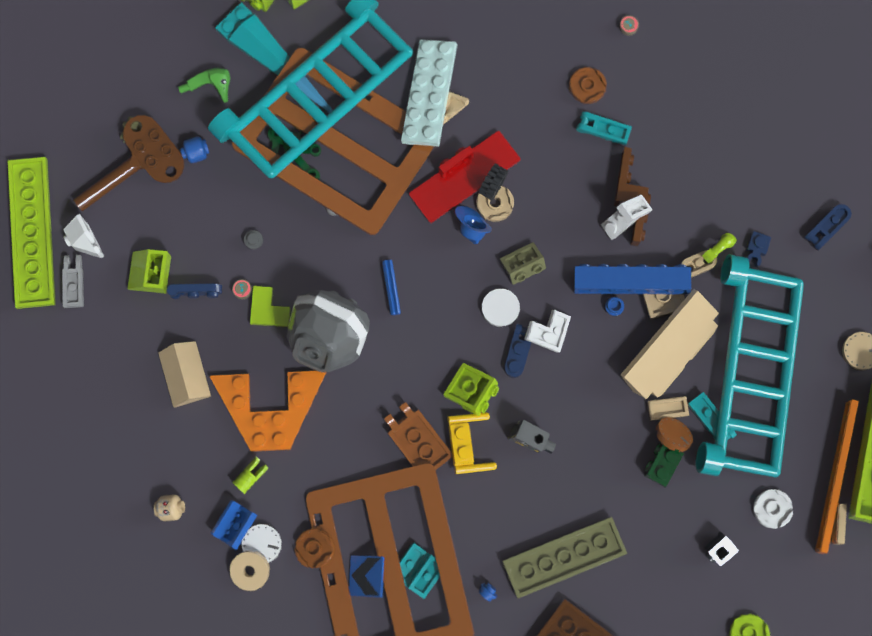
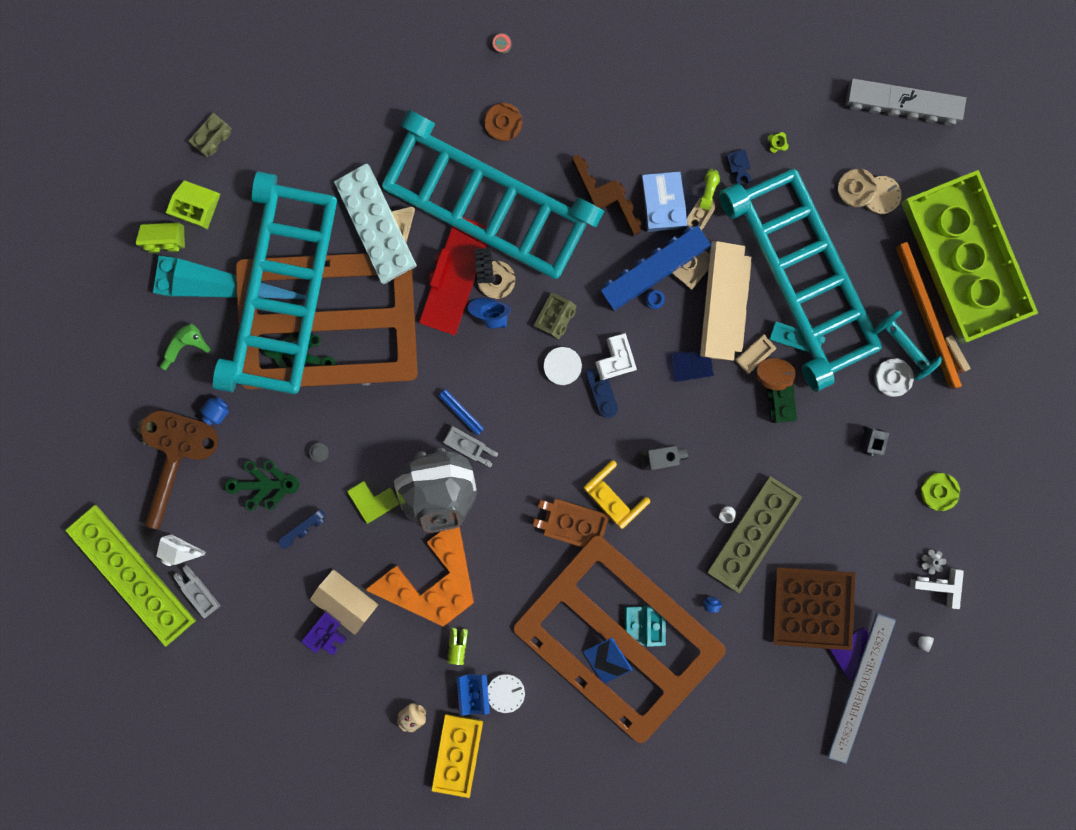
camera: 30 degrees left, 10 degrees up
(149, 271) = (253, 539): lime slope -> none
(149, 388) = (324, 634): none -> dark purple plate
(183, 567) = (457, 755): none -> yellow plate
(191, 235) = (265, 485): none -> dark green plant
(242, 289) = (339, 500): dark tan tile -> none
(246, 581) = (511, 731): tan tile -> none
(314, 548) = (550, 667): dark orange tile -> none
(378, 318) = (468, 445): none -> light grey hinge
(472, 389) = (586, 451): lime plate -> none
(553, 524) = (727, 514): none -> white hinge
(600, 193) = (580, 214): none -> teal fence
(604, 128) = (543, 151): teal plate -> none
(607, 381) = (691, 366): none -> clear blue plate
(625, 216) = (614, 217): white bracket -> none
(675, 234) = (664, 202): none -> light blue slope
(802, 487) = (907, 345): none -> teal hose
(805, 246) = (781, 137): none -> lime plate
(829, 225) = (786, 105): dark blue plate -> none
(845, 330) = (857, 188): none -> tan tile

